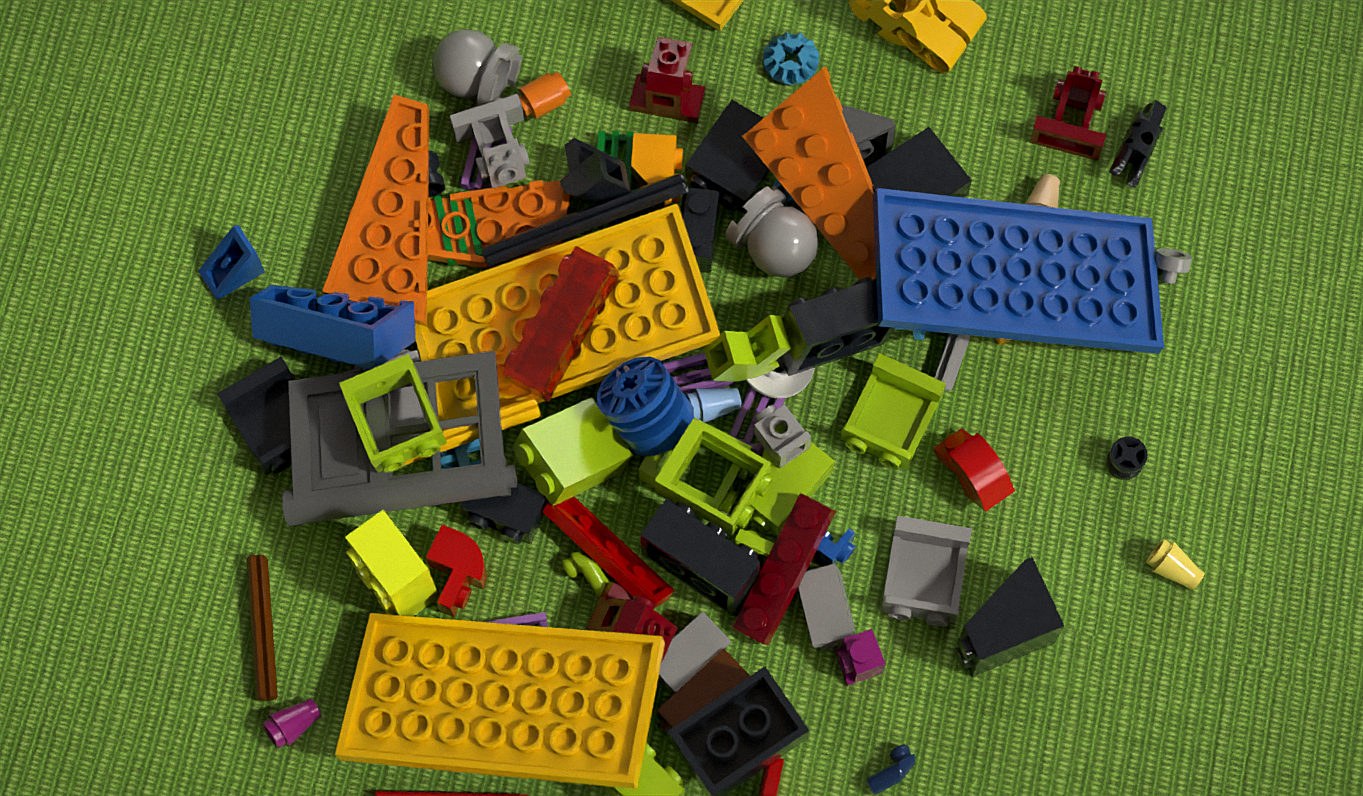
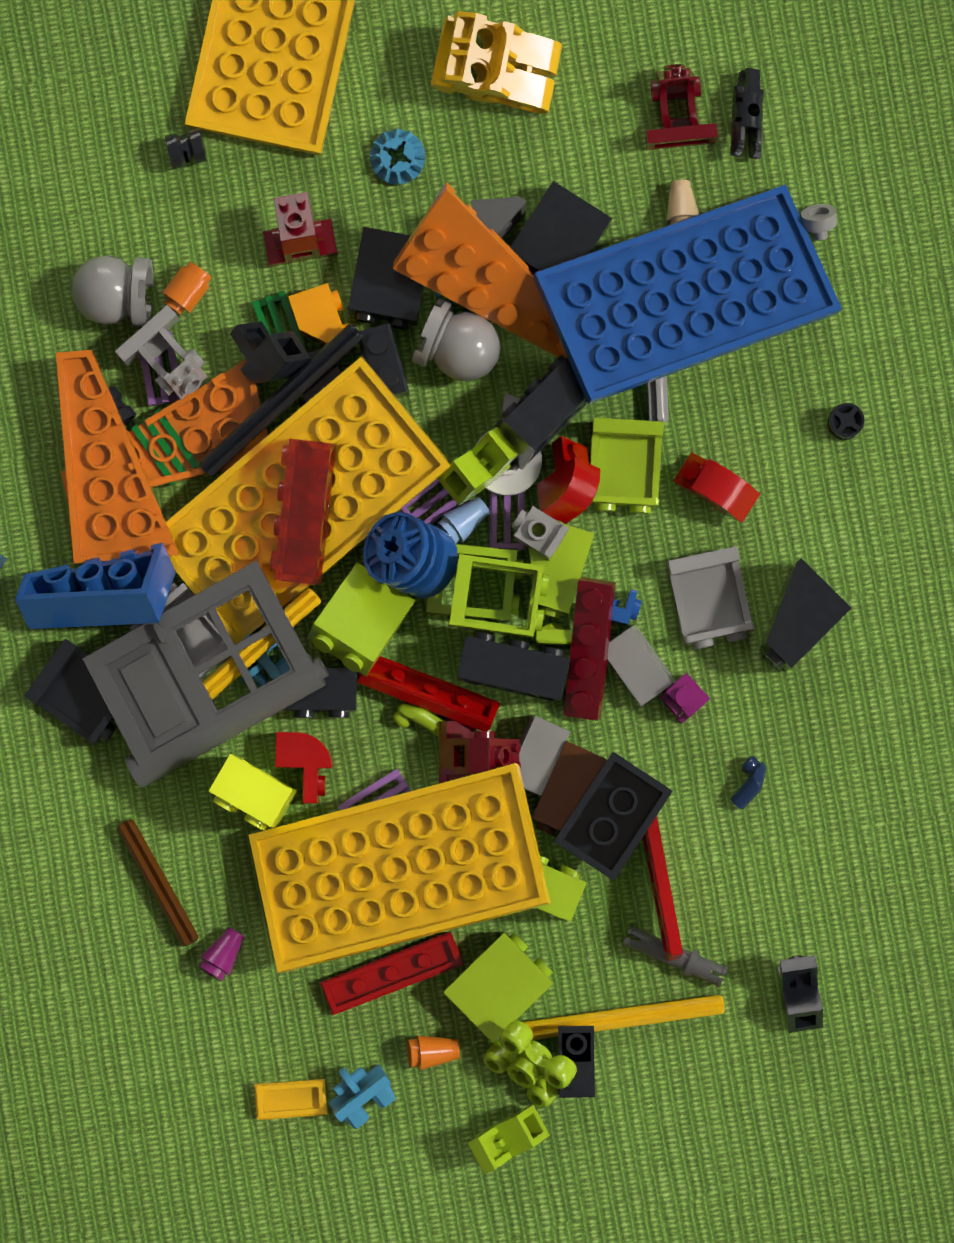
camera: 25 degrees left, 15 degrees up
(379, 382) = (170, 633): lime window -> none
(832, 406) = (571, 485): none -> red brick
(1172, 563) = (921, 502): light yellow cone -> none

